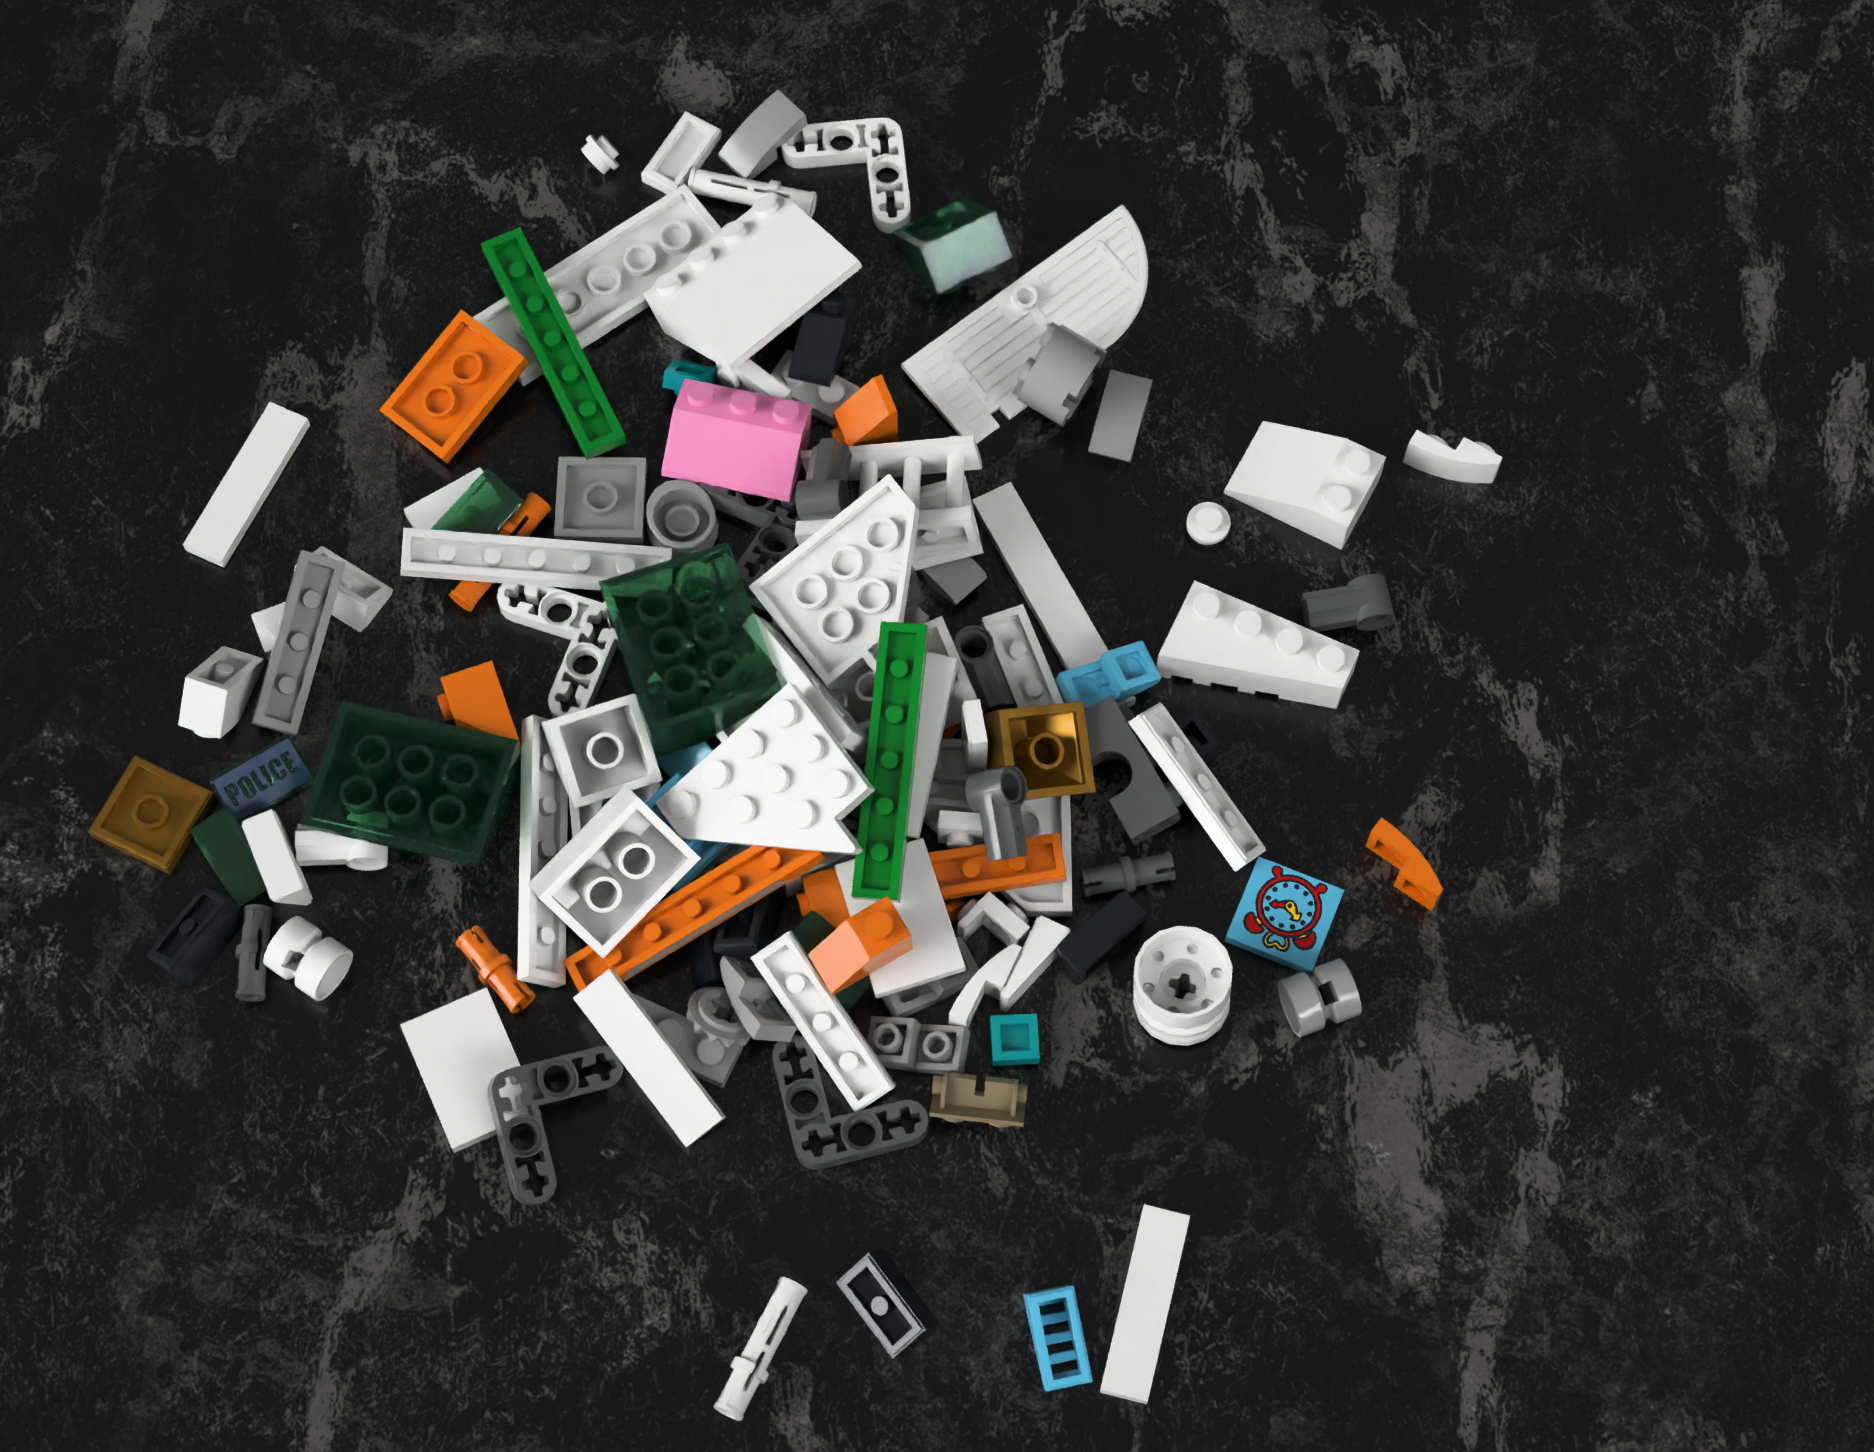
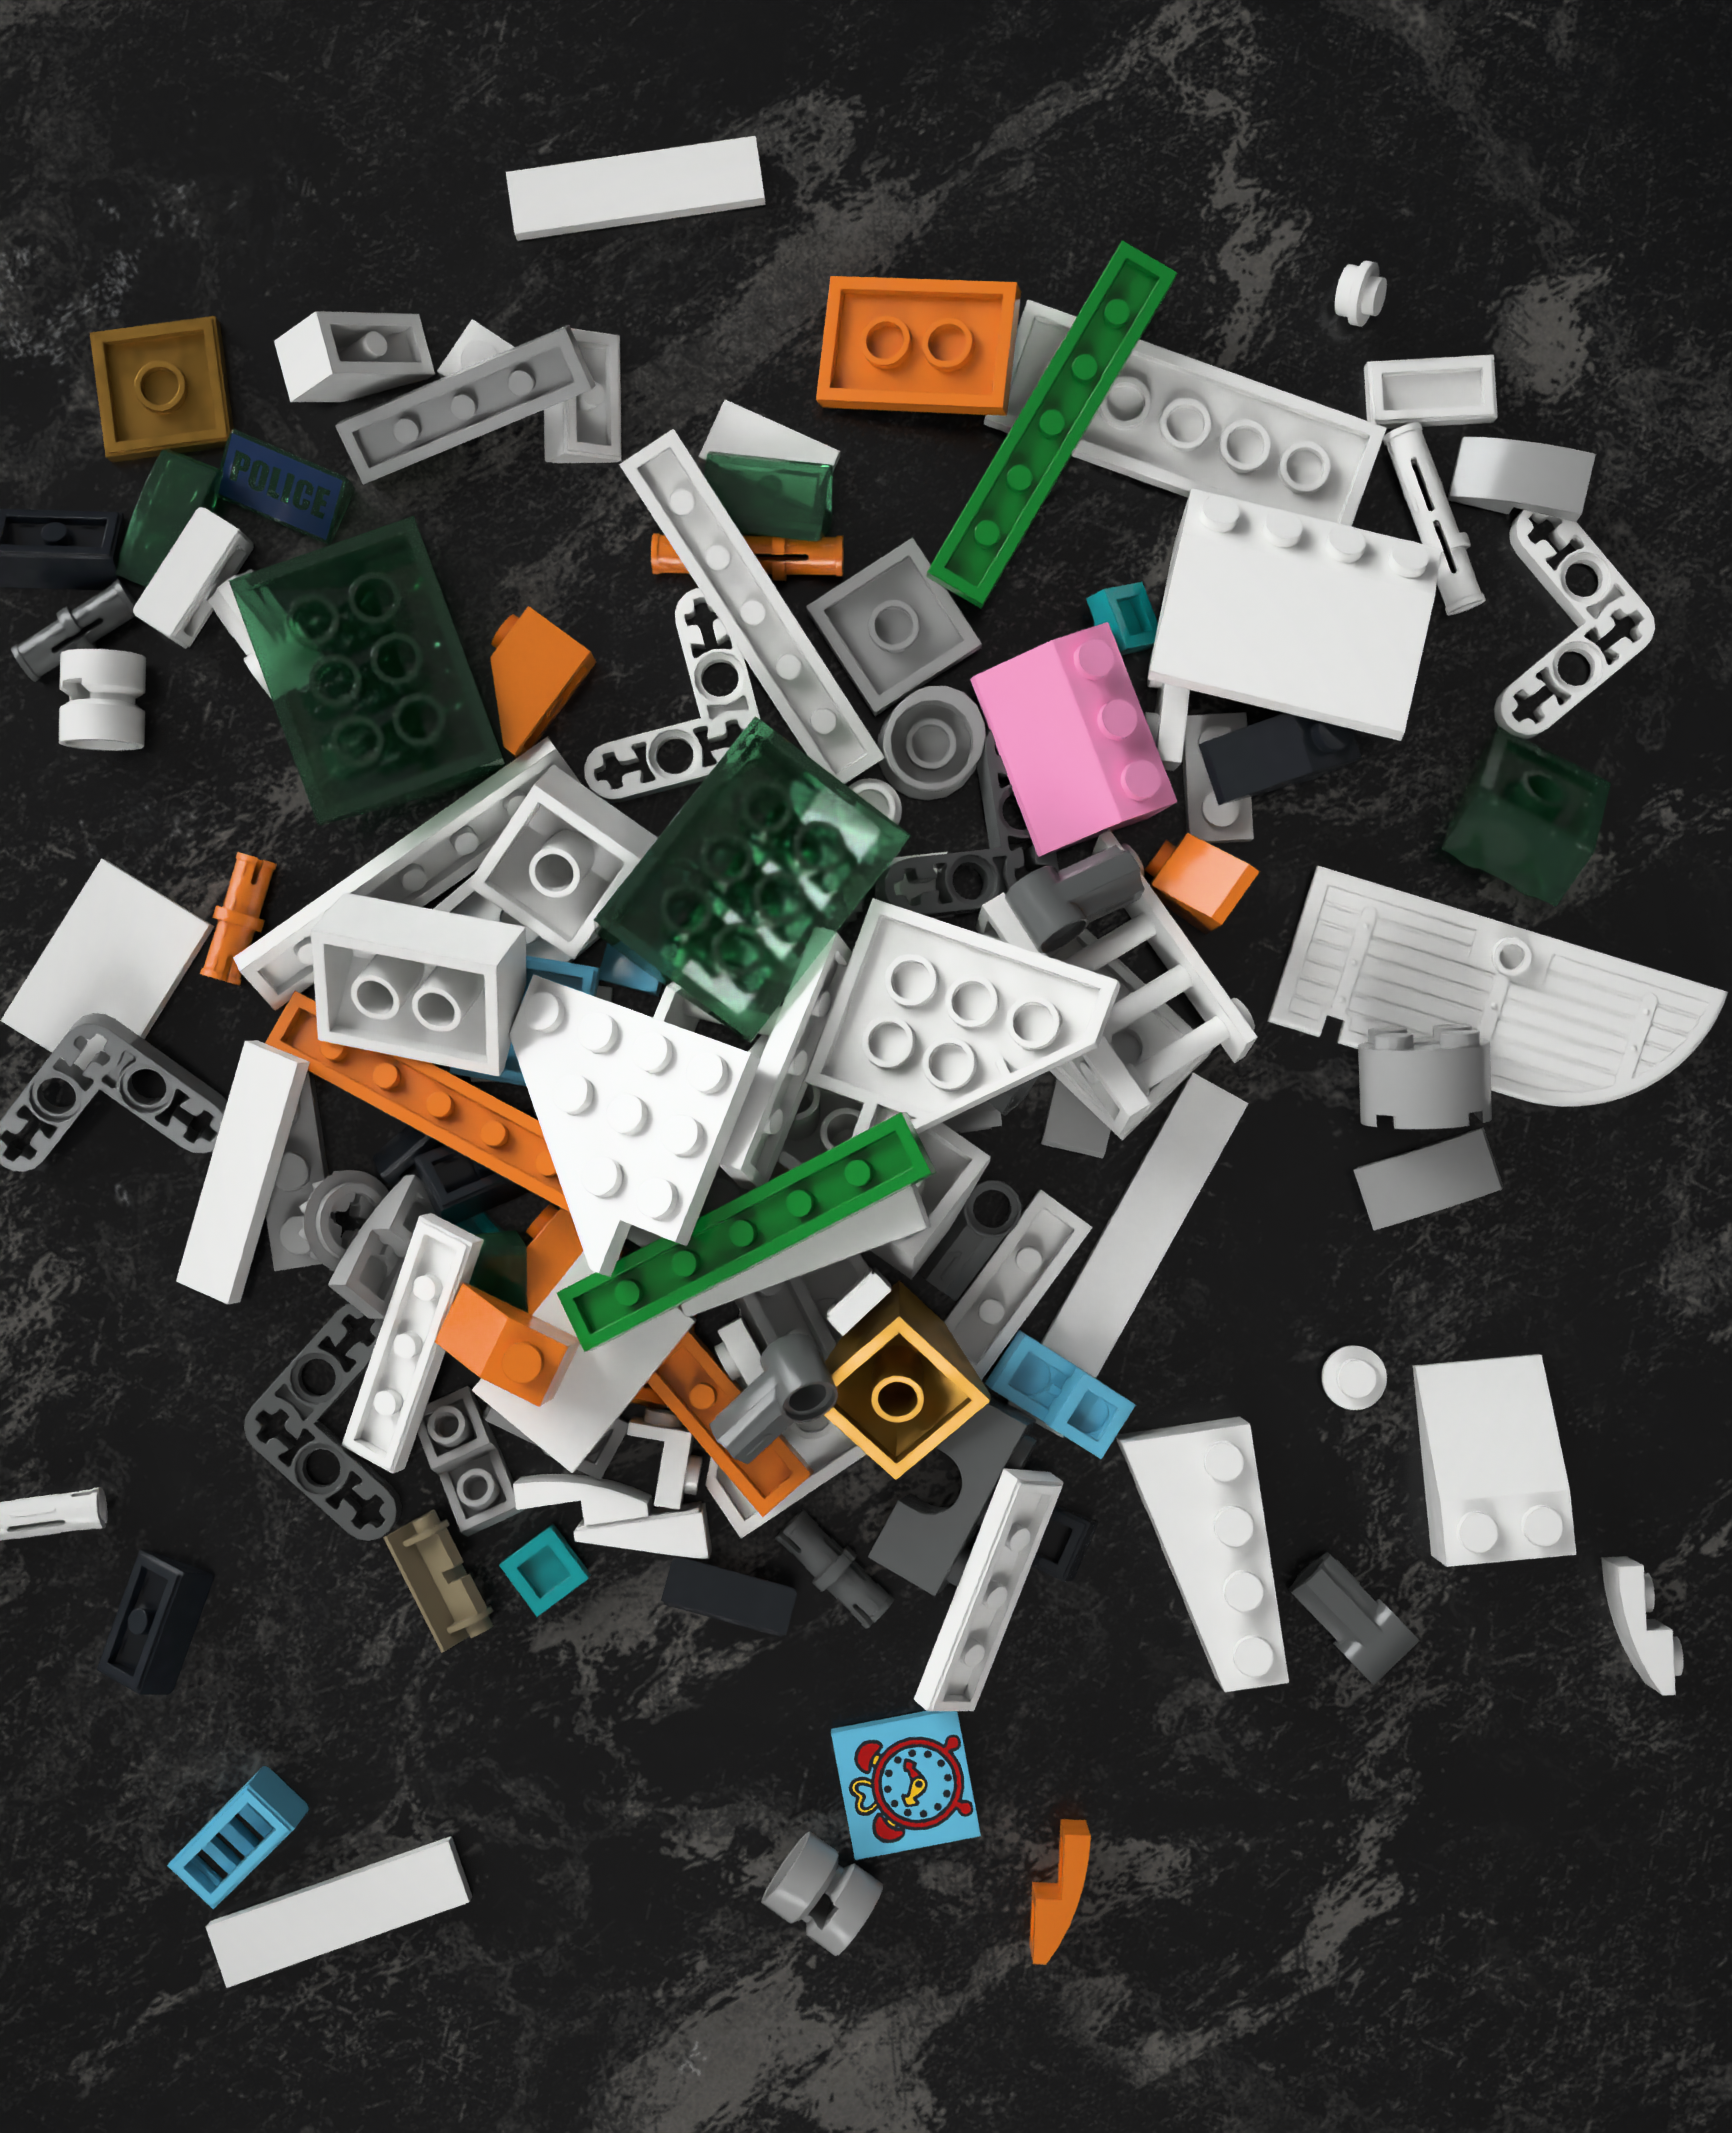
camera: 55 degrees right, 20 degrees up
(1177, 961) = (701, 1764): white wheel -> none

